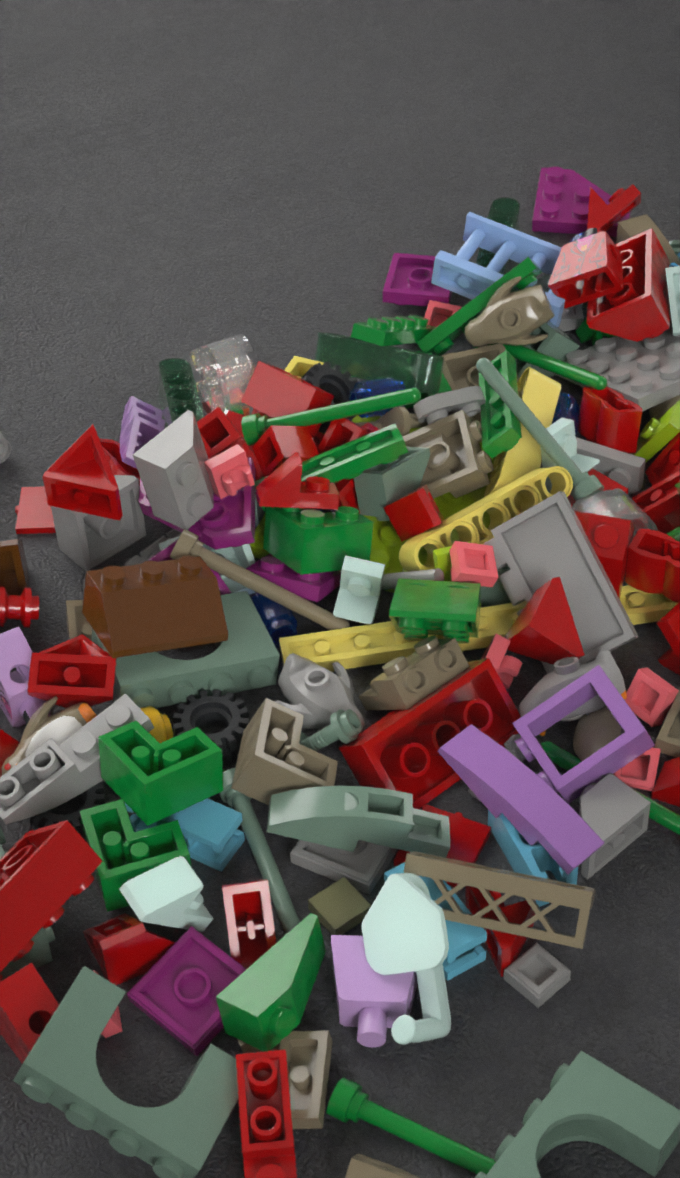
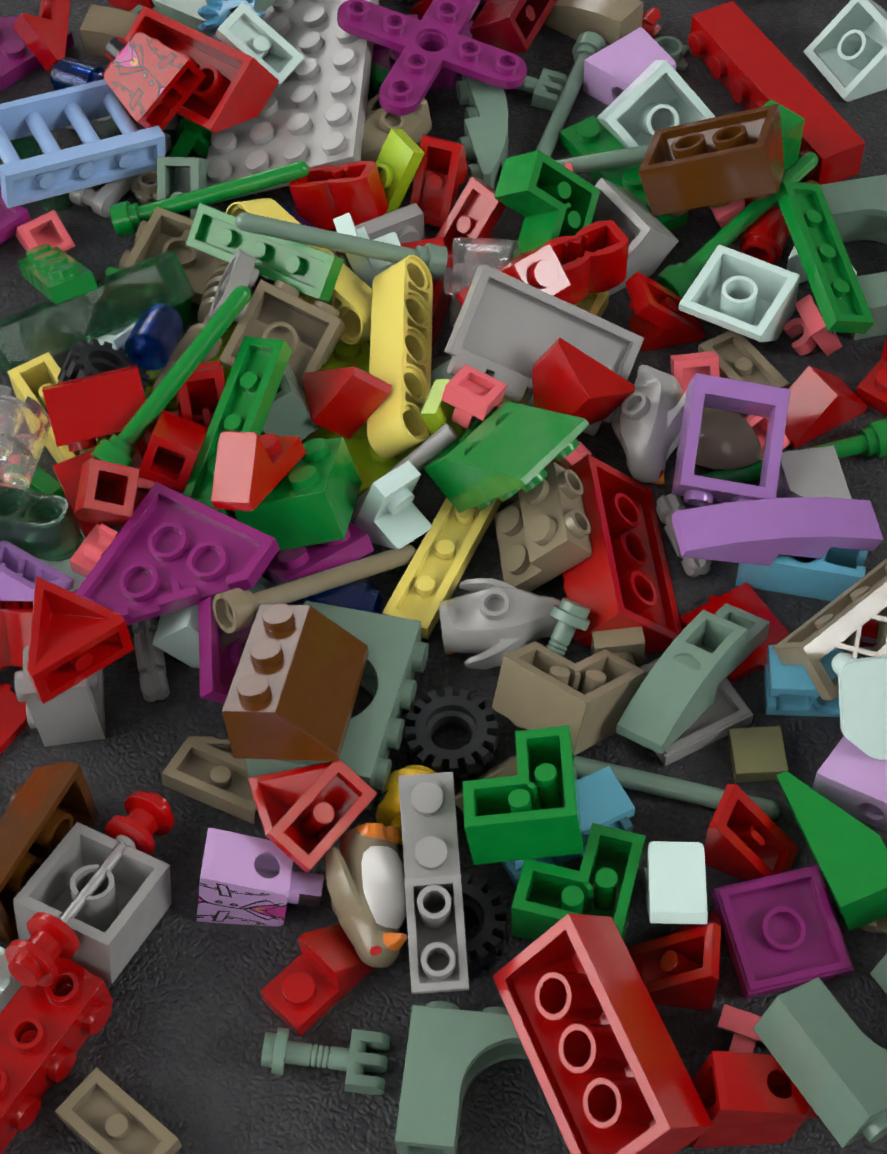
camera: 55 degrees left, 10 degrees up
(176, 473) = (154, 549): light grey slope -> none
(229, 472) = (180, 507): coral tile -> none
(353, 771) = (624, 642): none -> dark tan plate
(441, 338) = (104, 175): green plate -> none
(511, 317) = (150, 172): dark tan animal -> none

